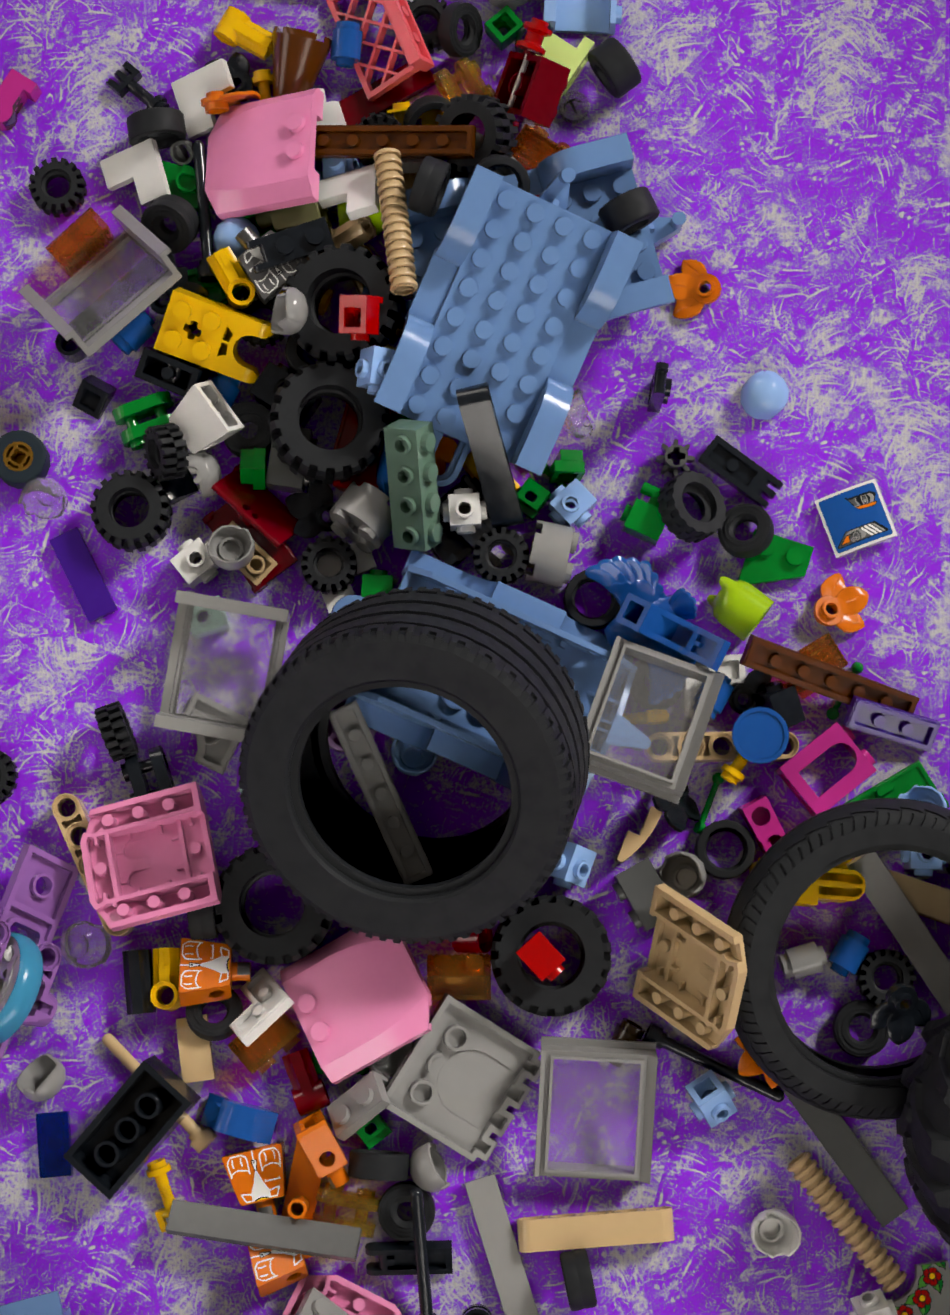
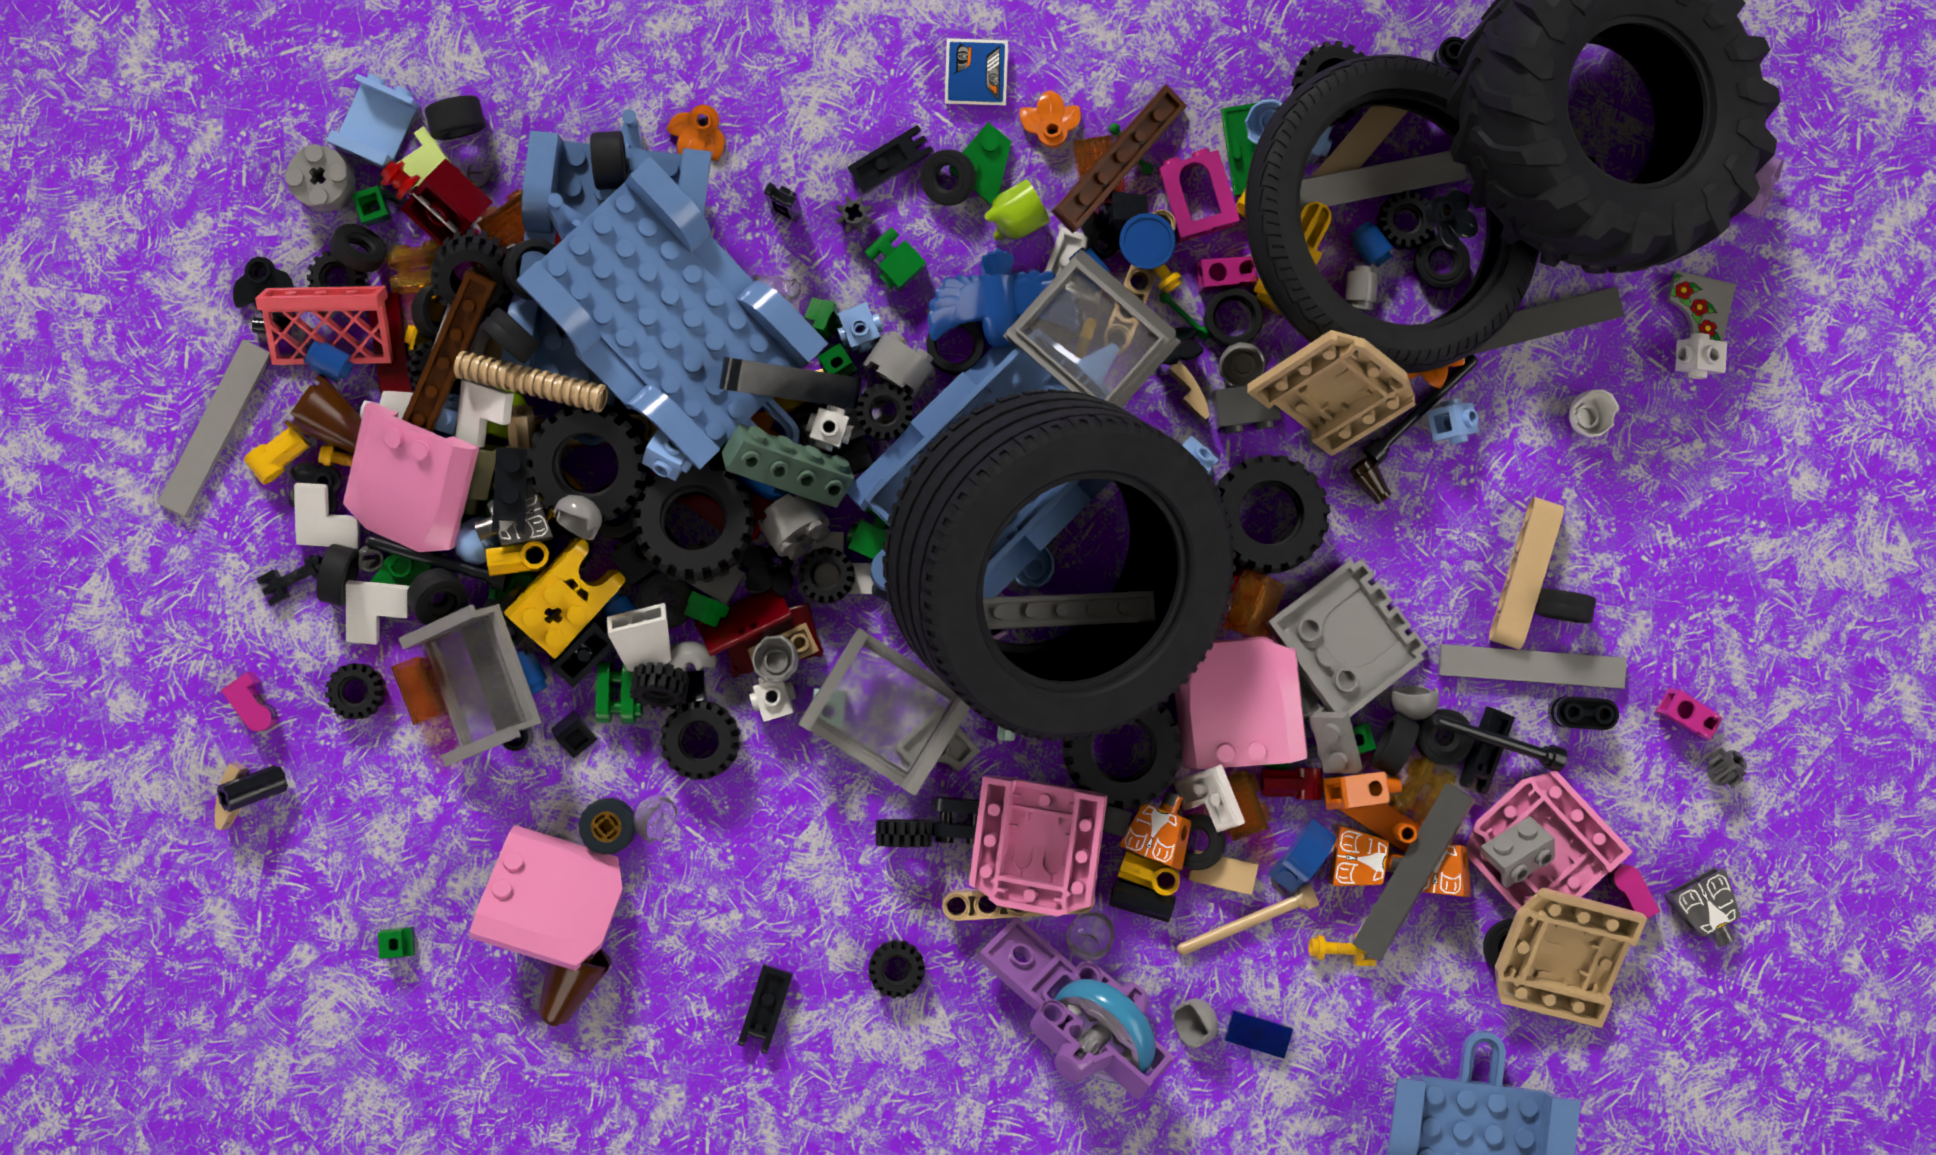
camera: 75 degrees left, 5 degrees up
(83, 575) = (741, 808): dark purple tile -> none
(131, 1127) = (1273, 956): black brick -> none
(217, 102) = (338, 505): orange plate -> none
(359, 316) = (611, 460): red brick -> none
(541, 957) = (1271, 522): red brick -> none
(596, 1108) = (1422, 528): piece -> none
(673, 631) = (1021, 280): blue arch -> none
(677, 517) = (907, 199): black tyre -> none
(764, 395) = (826, 107): light blue hair -> none
(847, 1222) = (1609, 345): tan piece -> none
(891, 723) = (1179, 118): tile -> none

